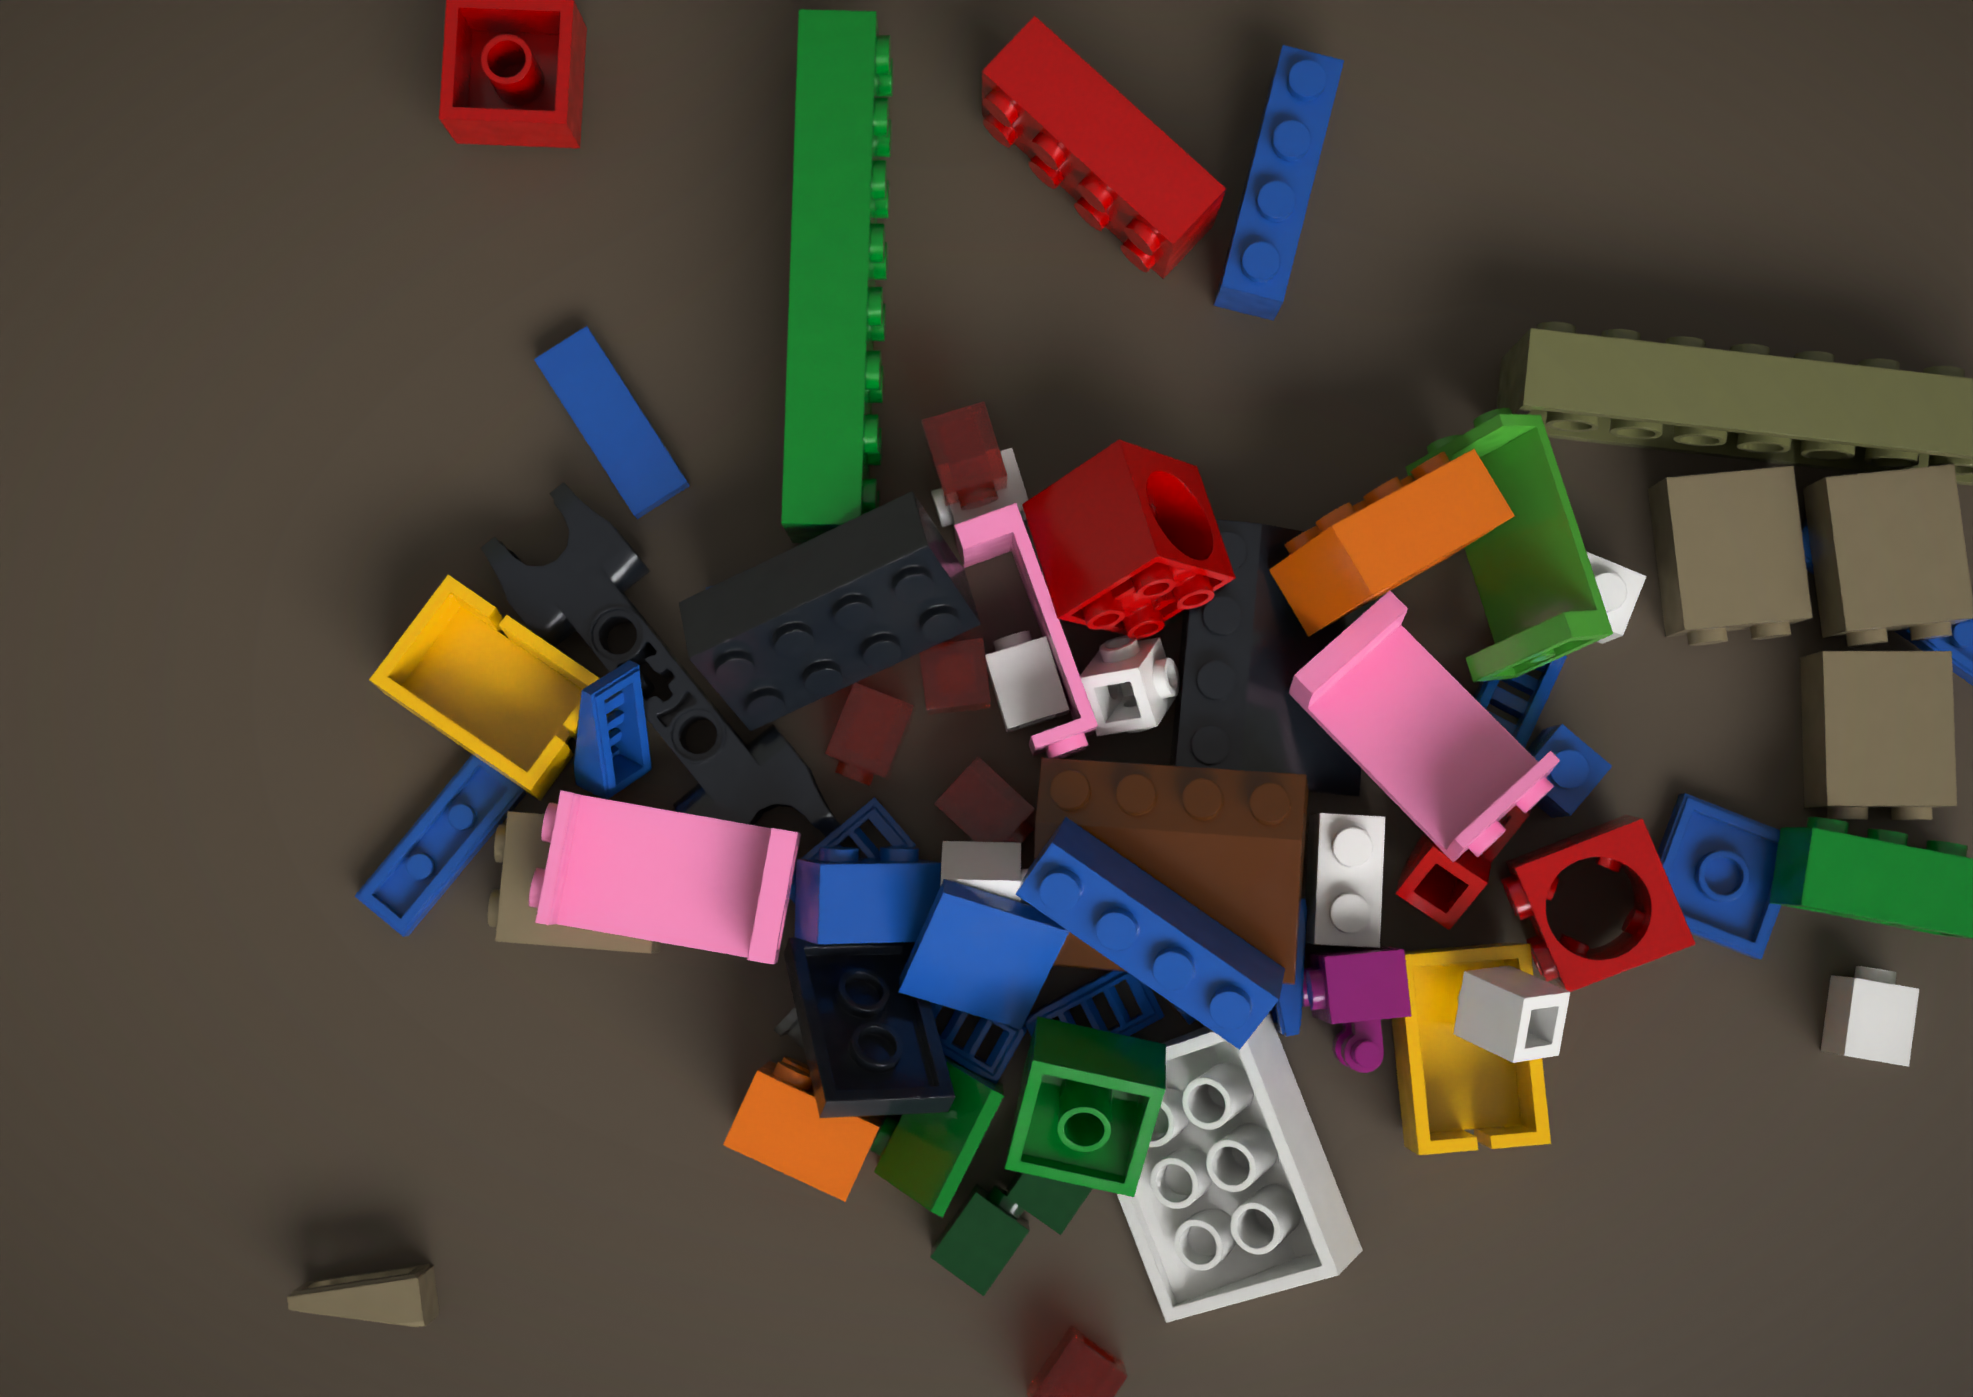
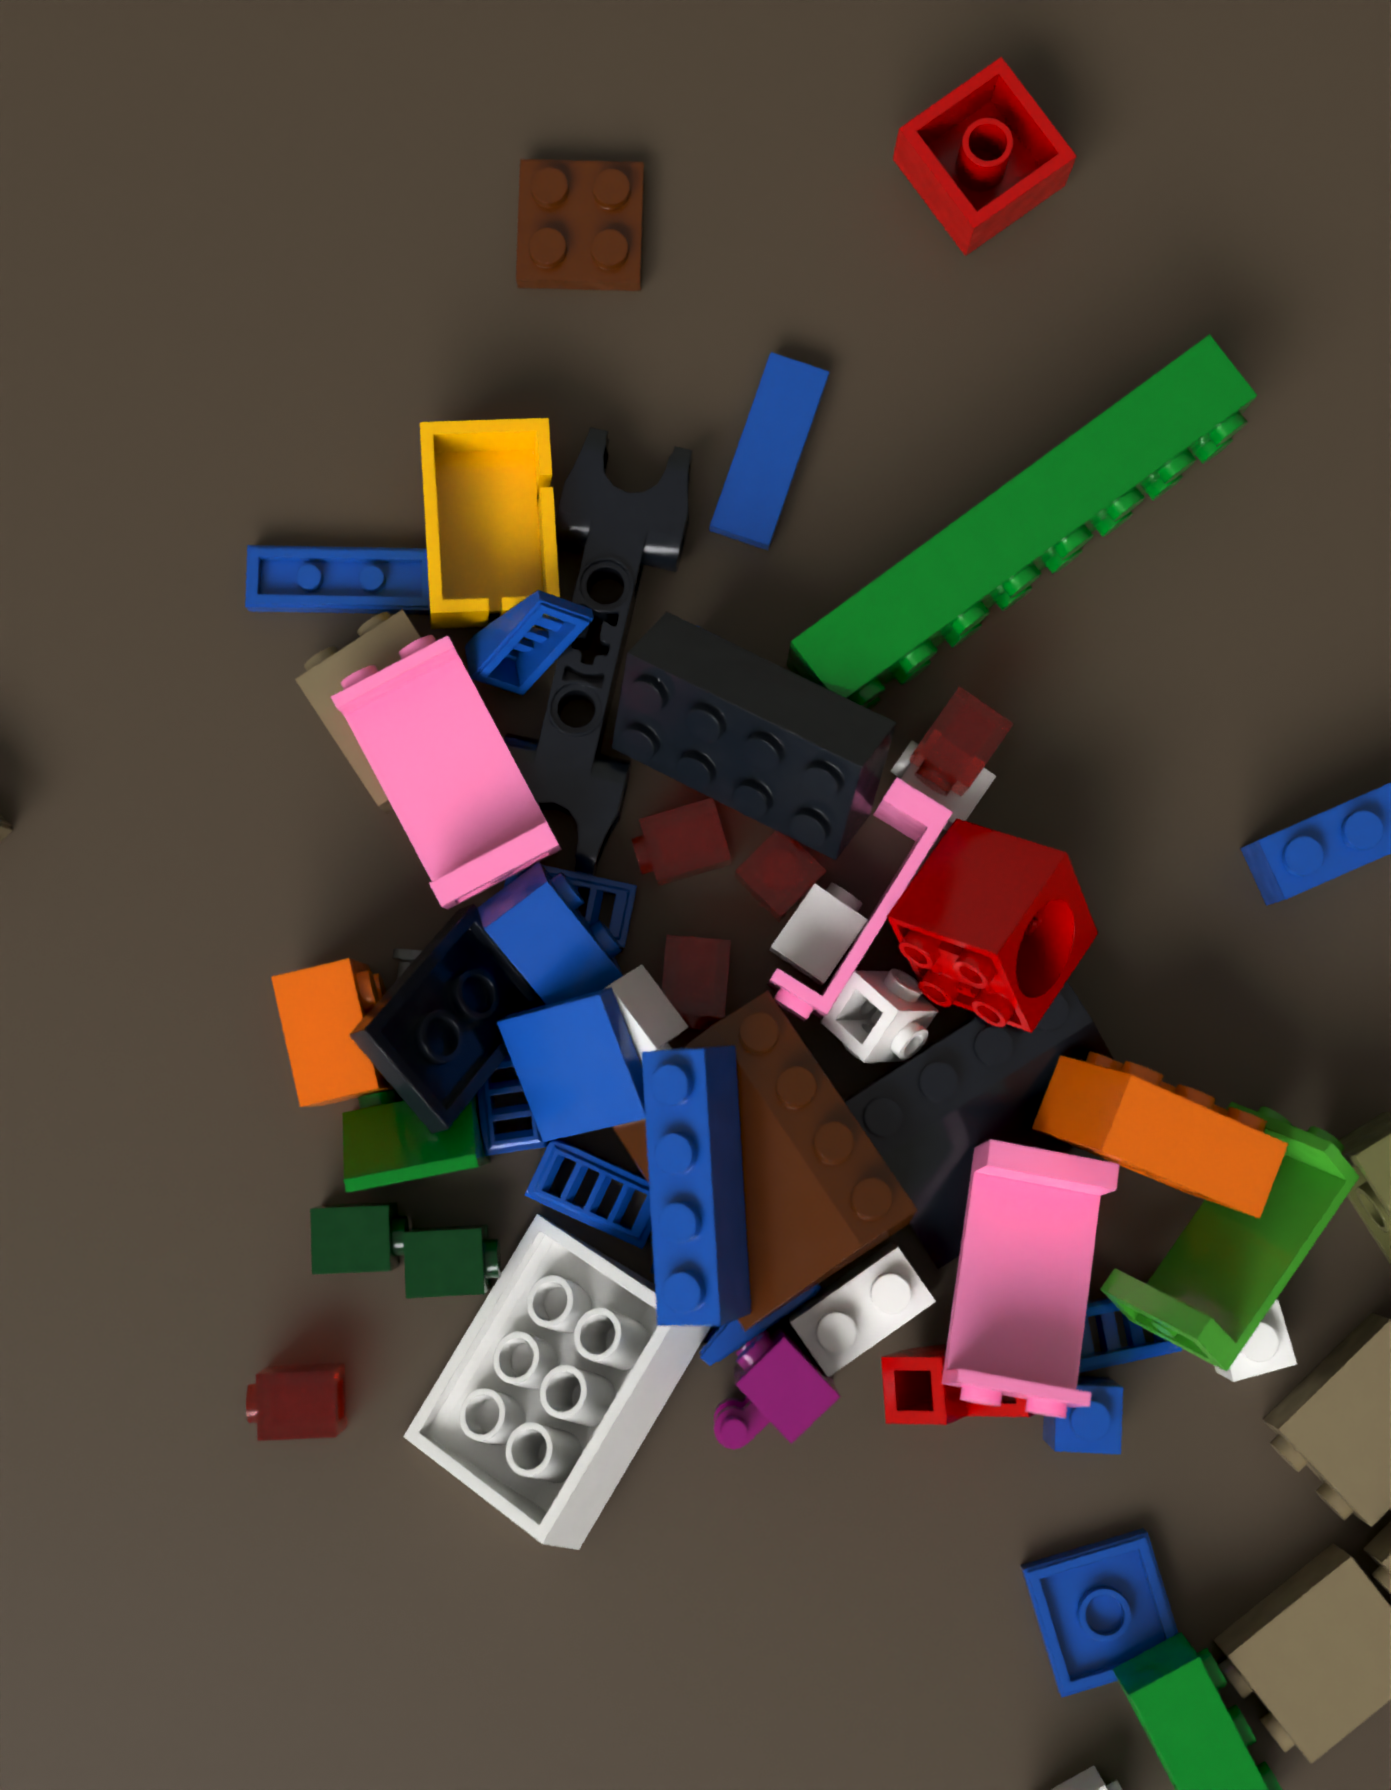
camera: 55 degrees right, 0 degrees up
(309, 429) = (580, 225): none -> reddish brown plate
(1086, 1106) = (521, 1240): green slope -> none
(1098, 149) = (1290, 657): red brick -> none
(1454, 1083) = (799, 1514): yellow piece -> none
(1511, 1013) = (856, 1523): white brick -> none
(1650, 929) = (1011, 1586): red brick -> none

